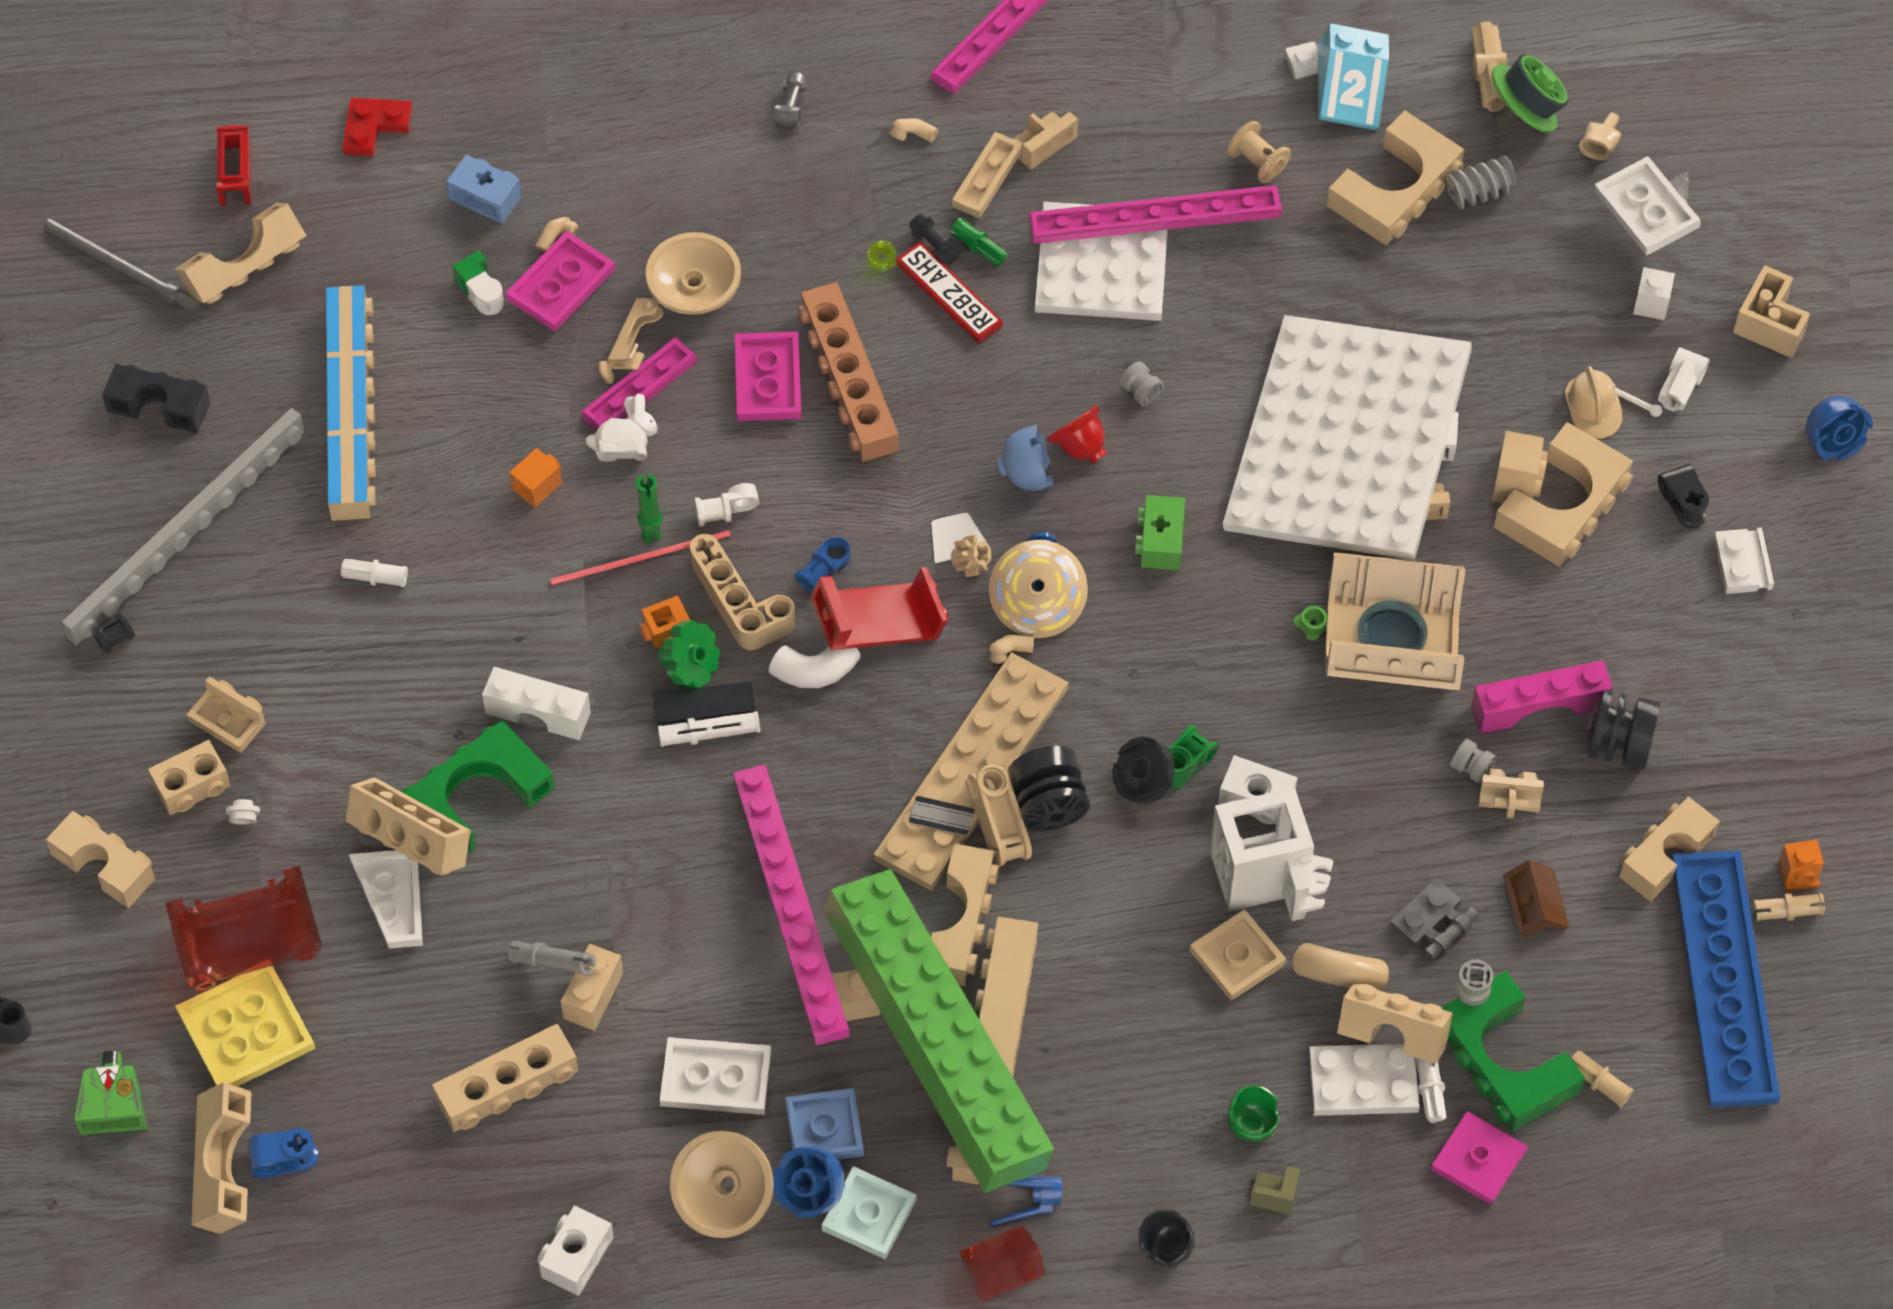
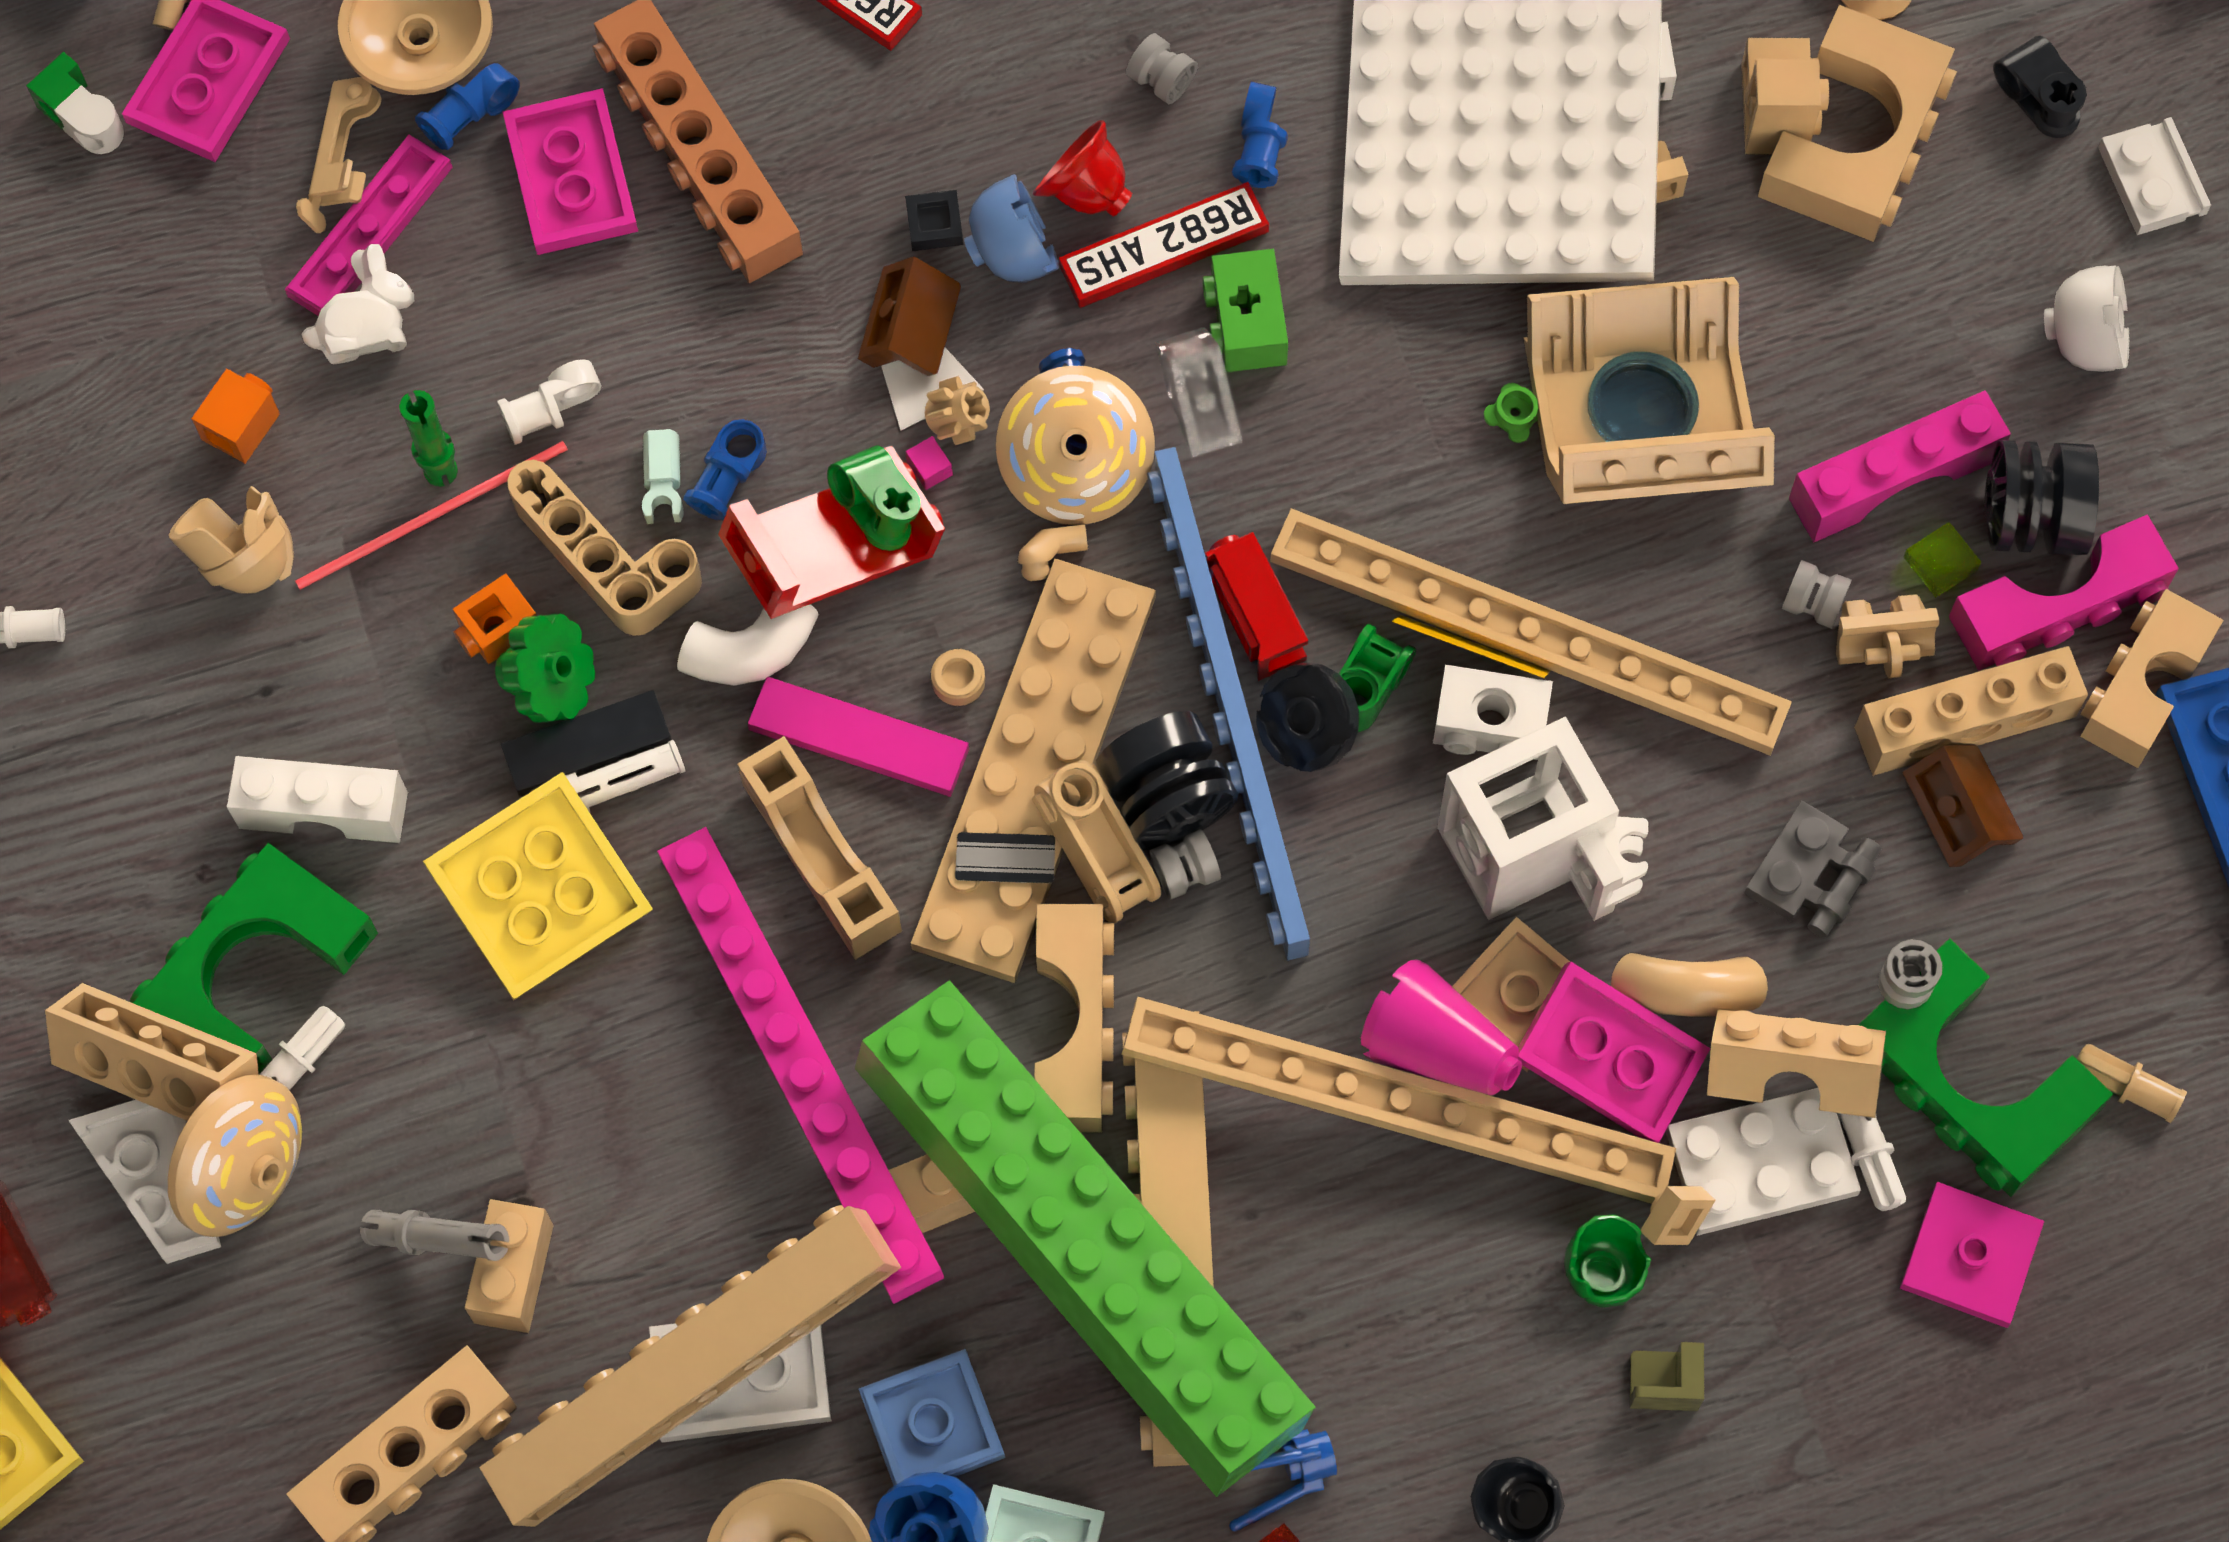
camera: 10 degrees left, 10 degrees up
(444, 888) = (235, 1156): none -> tan dish
(493, 845) = (304, 1047): none -> white axle
(517, 557) = (235, 555): none -> tan helmet
(657, 776) = (537, 886): none -> light yellow plate
(686, 1056) = (689, 1365): none -> tan brick
(728, 321) = (486, 93): none -> blue connector
(784, 559) = (661, 473): none -> light aqua bar
(823, 773) = (817, 848): none -> tan arch
(869, 732) = (858, 736): none -> dark pink tile
(910, 594) = (875, 496): none -> green piece
(937, 710) = (958, 677): none -> tan tile
(947, 584) = (929, 463): none -> dark pink piece
(955, 497) = (910, 316): none -> reddish brown panel
(982, 445) = (934, 220): none -> black plate
(1057, 839) = (1194, 866): none -> light grey wheel
(1097, 765) = (1232, 721): none -> medium blue plate
(1119, 486) = (1163, 244): none -> tile
(1121, 573) = (1199, 391): none -> clear slope
(1126, 699) = (1256, 604): none -> red window
(1148, 997) = (1398, 1101): none -> tan plate
(1178, 961) = (1438, 1034): none -> dark pink cone
(1193, 435) = (1261, 139): none -> blue connector
(1254, 750) = (1471, 646): none -> yellow sticker
(1283, 997) = (1611, 1053): none -> dark pink plate
(1293, 750) = (1531, 631): none -> tan plate
(1302, 1096) = (1677, 1215): none -> tan plate
(1553, 844) = (1971, 709): none -> tan brick
(1557, 757) = (1942, 559): none -> clear neon green plate
(1587, 799) = (2005, 620): none -> dark pink arch
(1681, 634) = (2091, 319): none -> white cylinder

